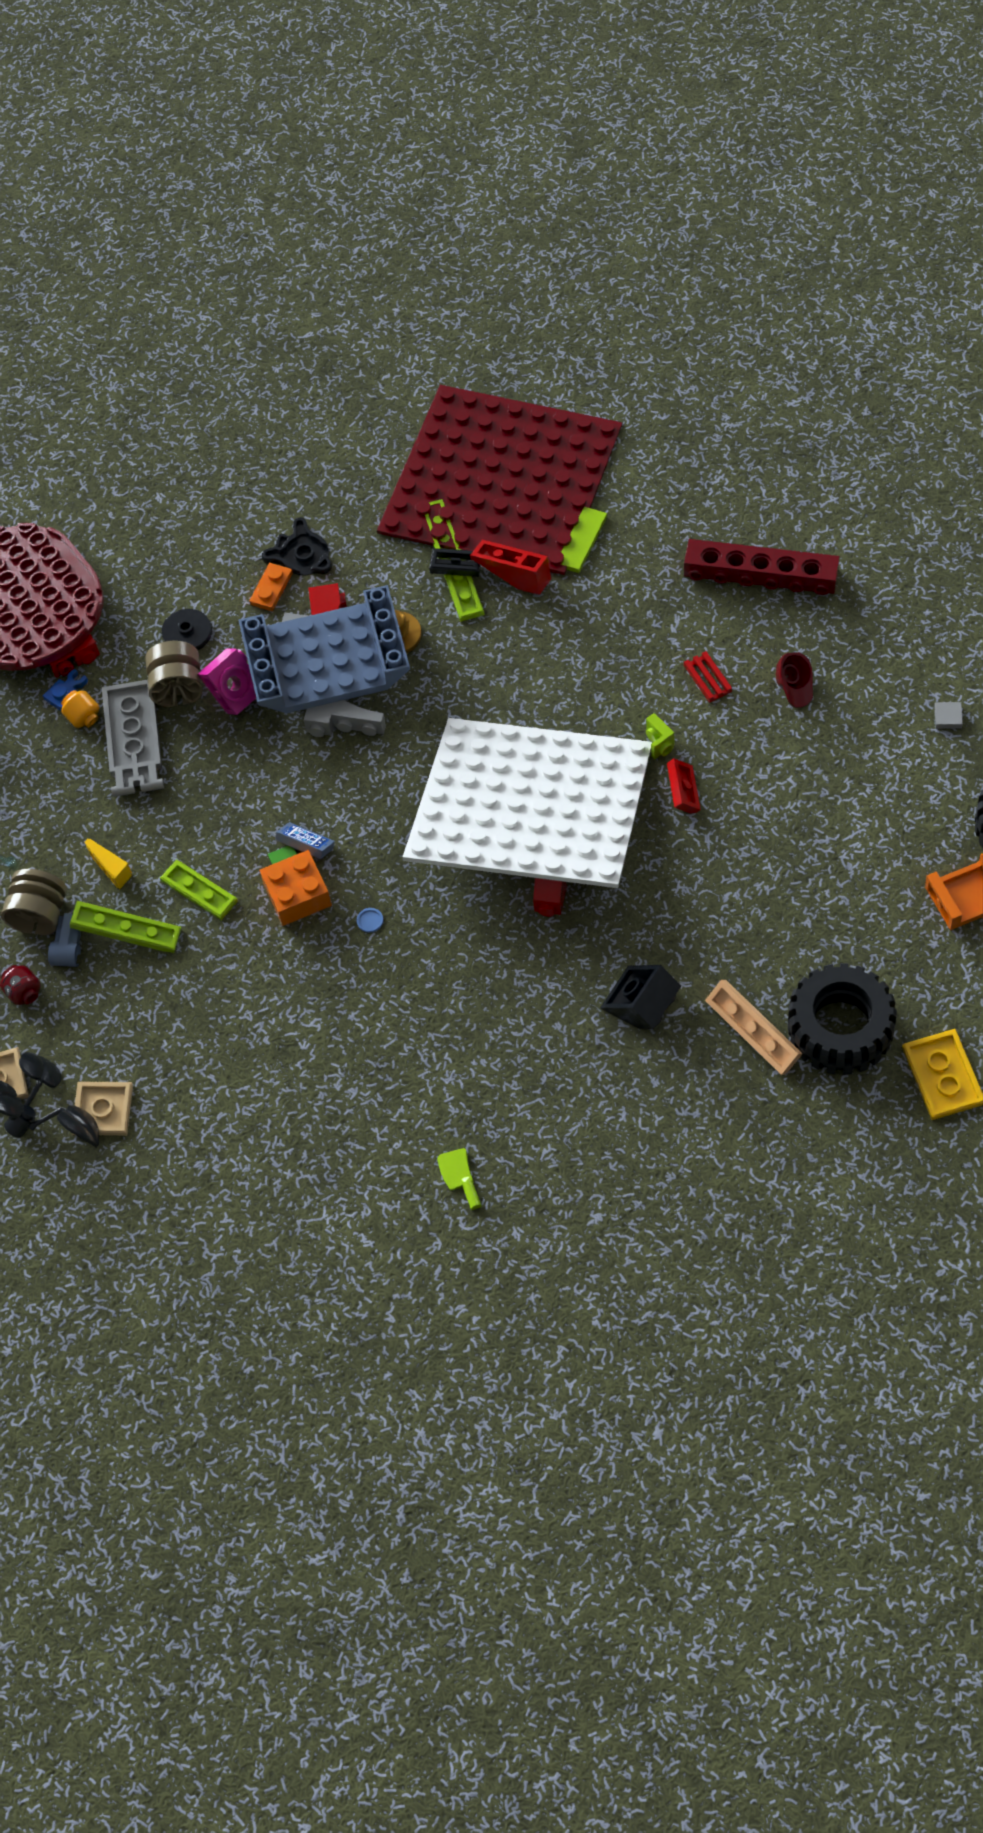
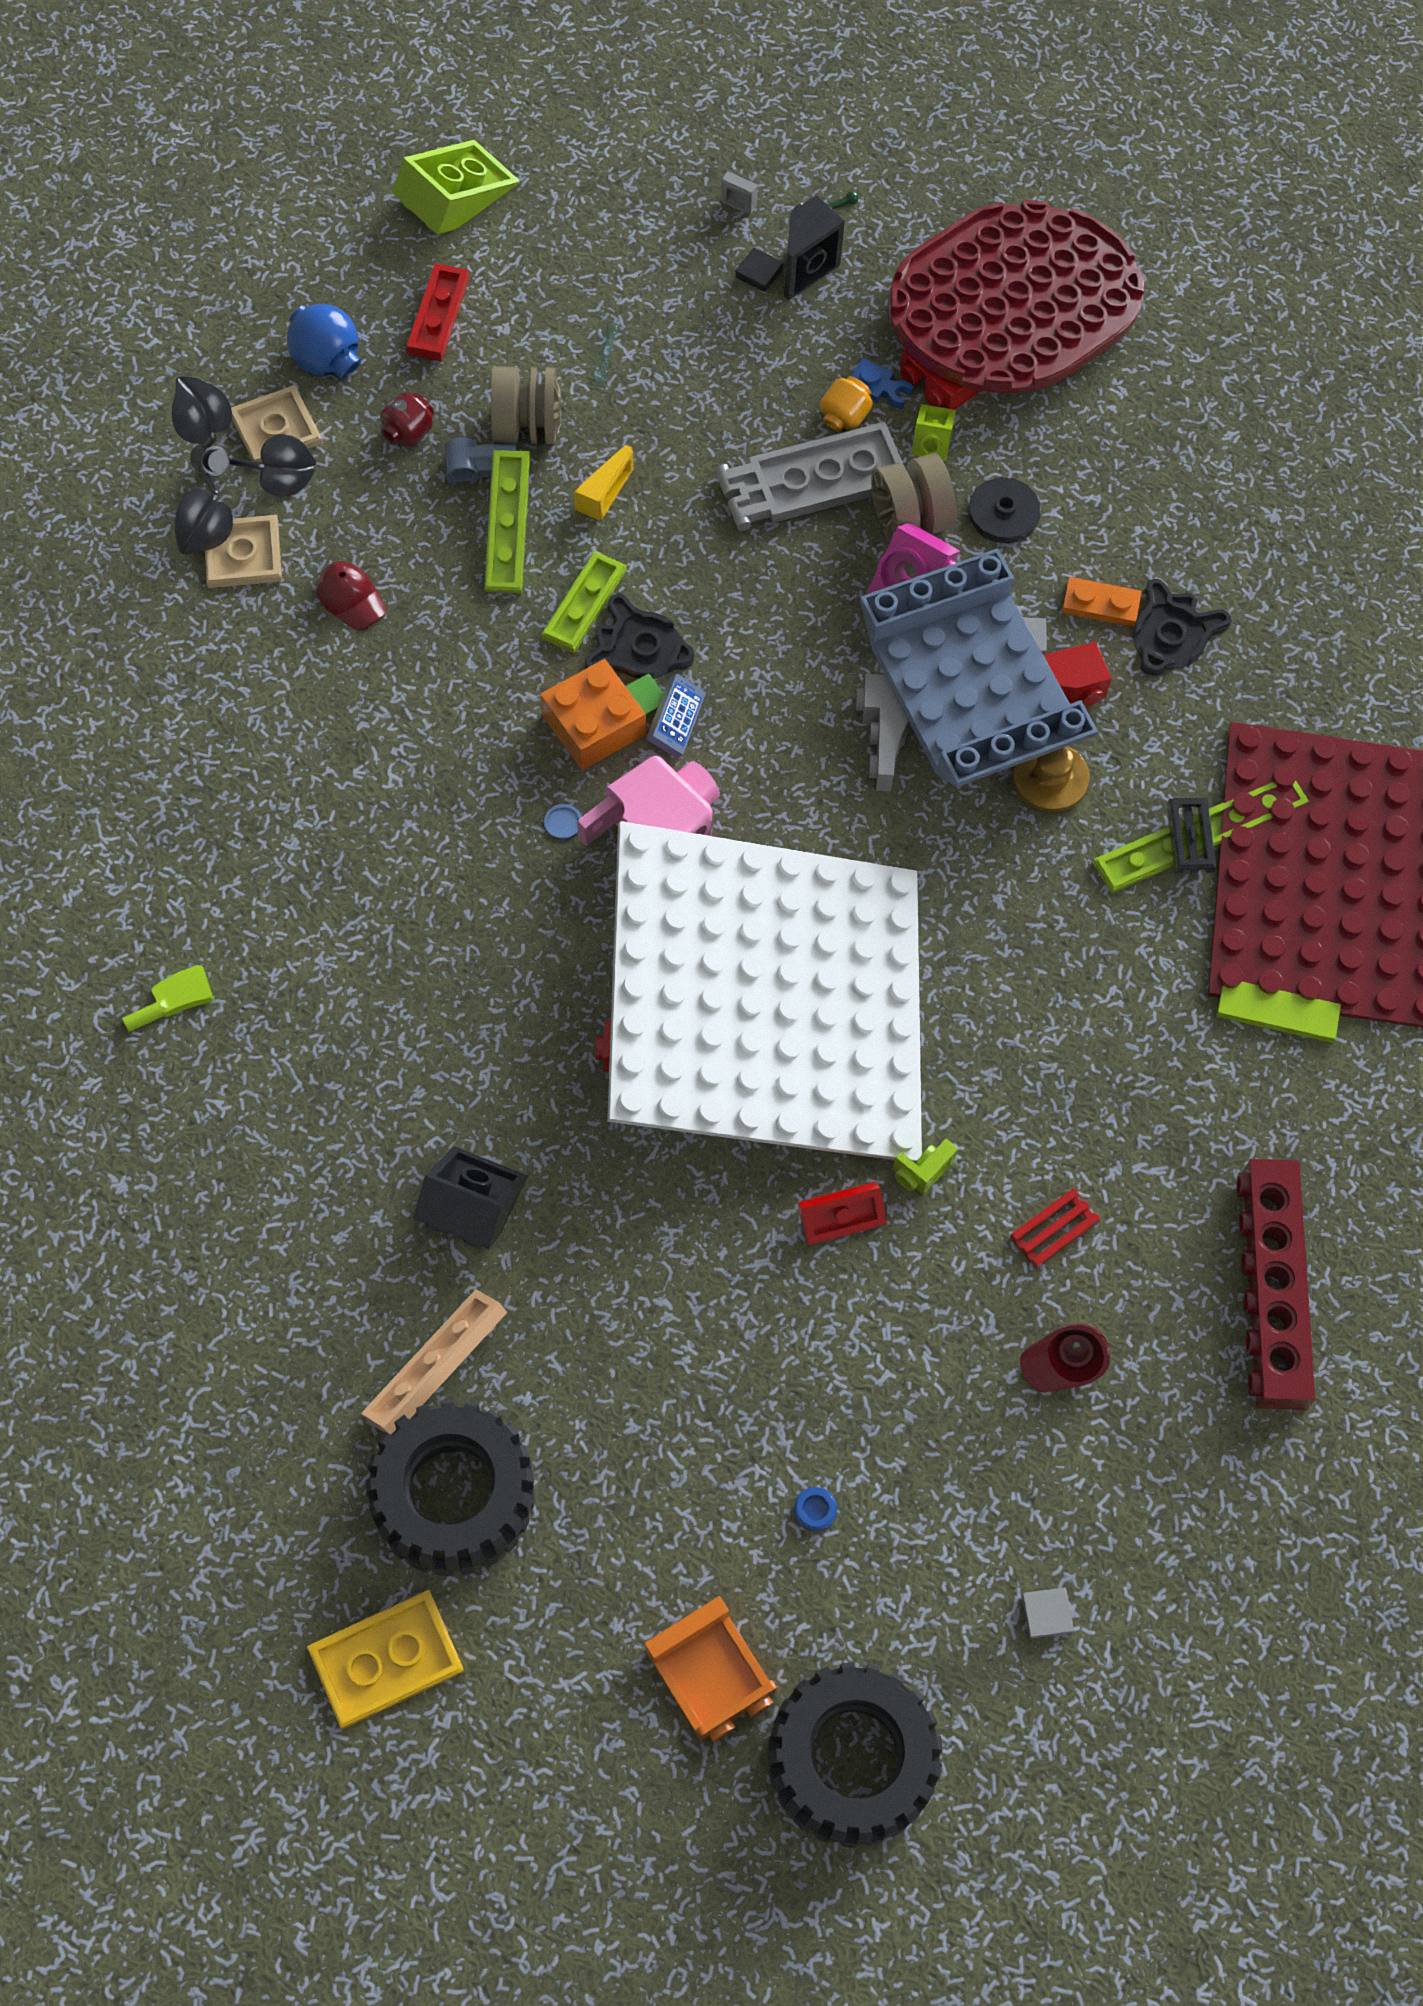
camera: 70 degrees right, 5 degrees up
(114, 659) = (933, 431): none -> lime bracket
(163, 1039) = (352, 597): none -> dark red cap
(239, 860) = (640, 642): none -> black tile
(378, 853) = (657, 798): none -> bright pink piece
(515, 566) = (1197, 913): red slope -> none
(872, 827) = (815, 1509): none -> blue tile

